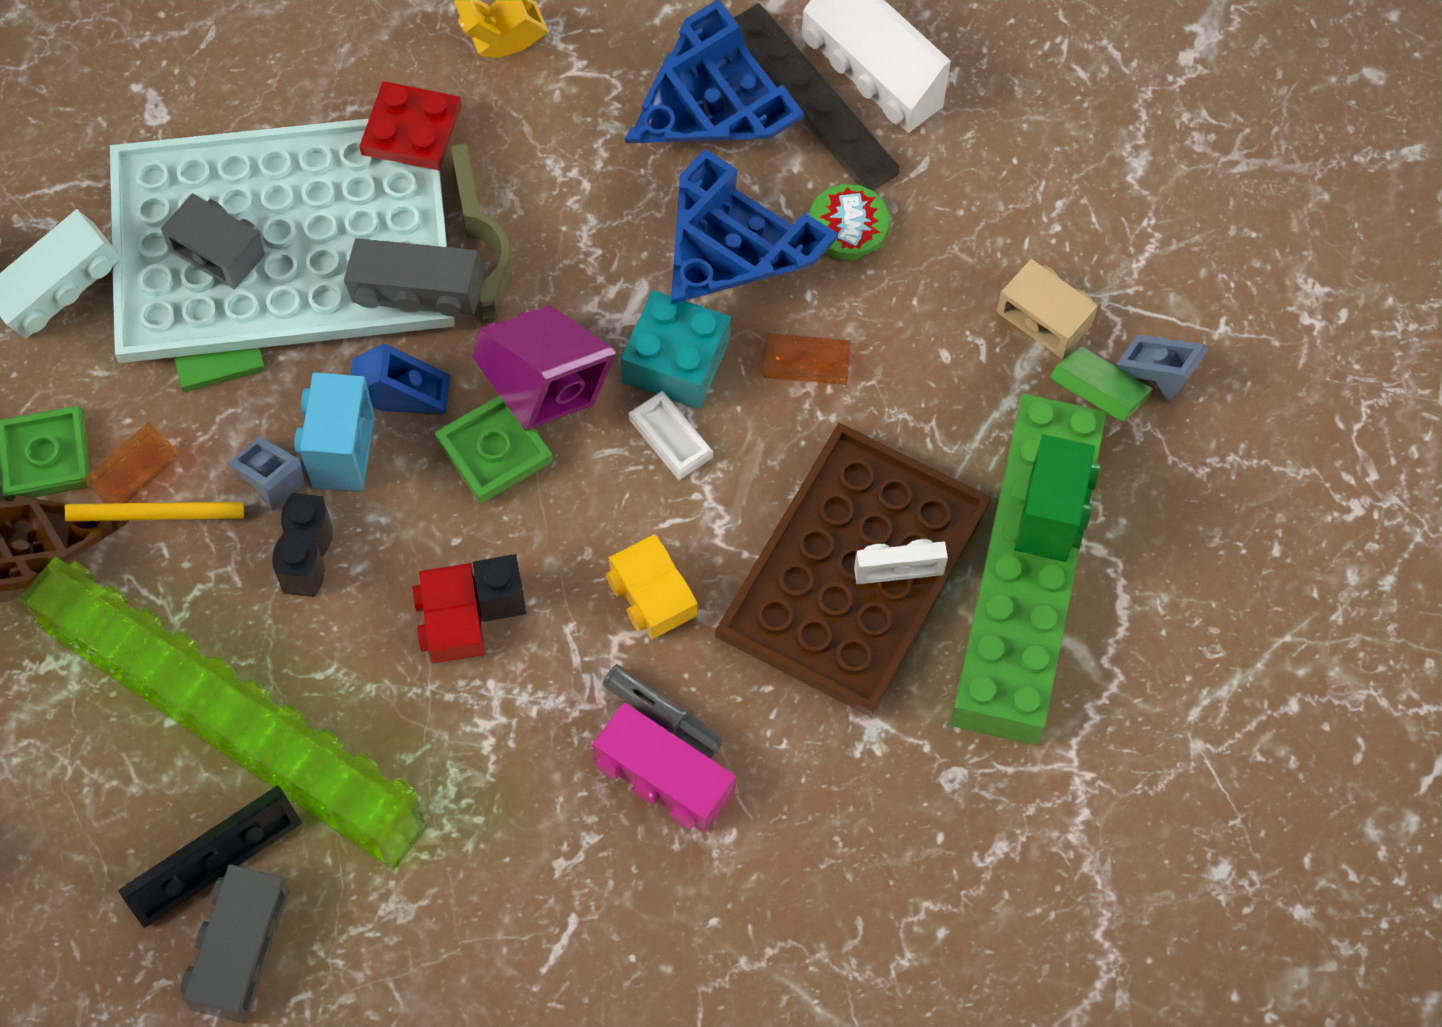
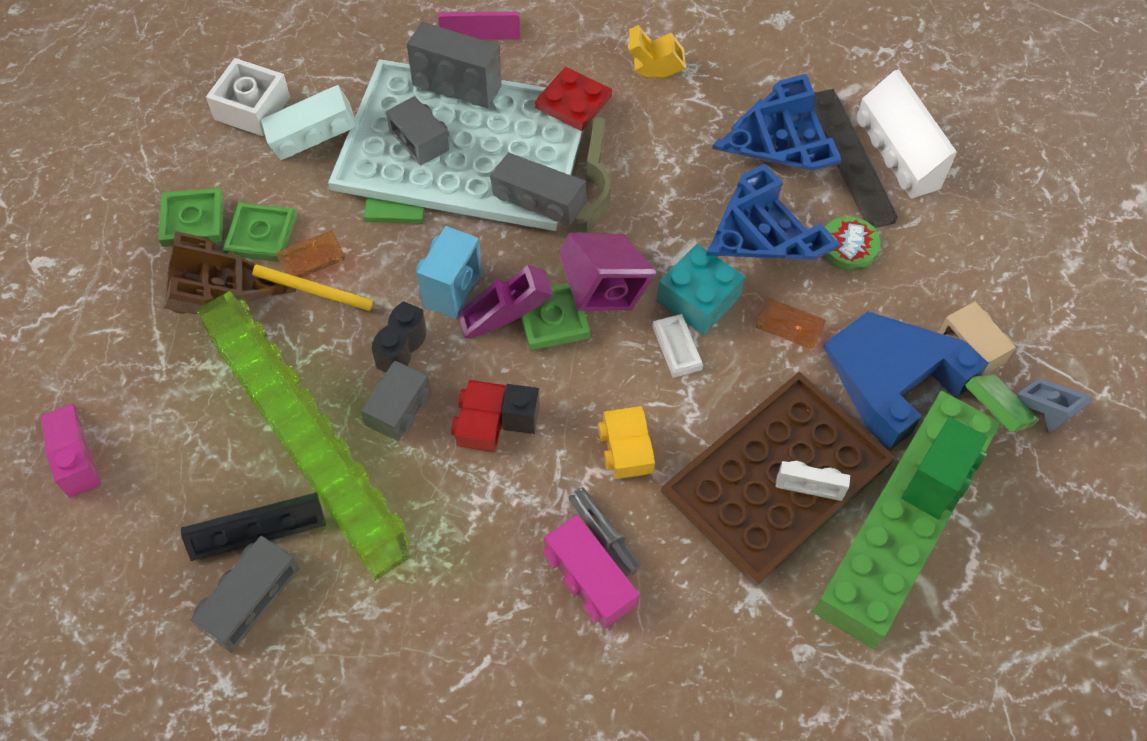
camera: 20 degrees right, 5 degrees down
(230, 129) = (454, 64): none -> dark grey brick
(233, 48) = (482, 24): none -> dark pink panel
(269, 471) = (397, 285): sand blue slope -> none
(332, 630) = (396, 401): none -> dark grey brick
(402, 381) = (503, 252): blue slope -> none
(426, 450) = (505, 301): none -> magenta slope
(943, 368) = (889, 358): none -> blue wedge

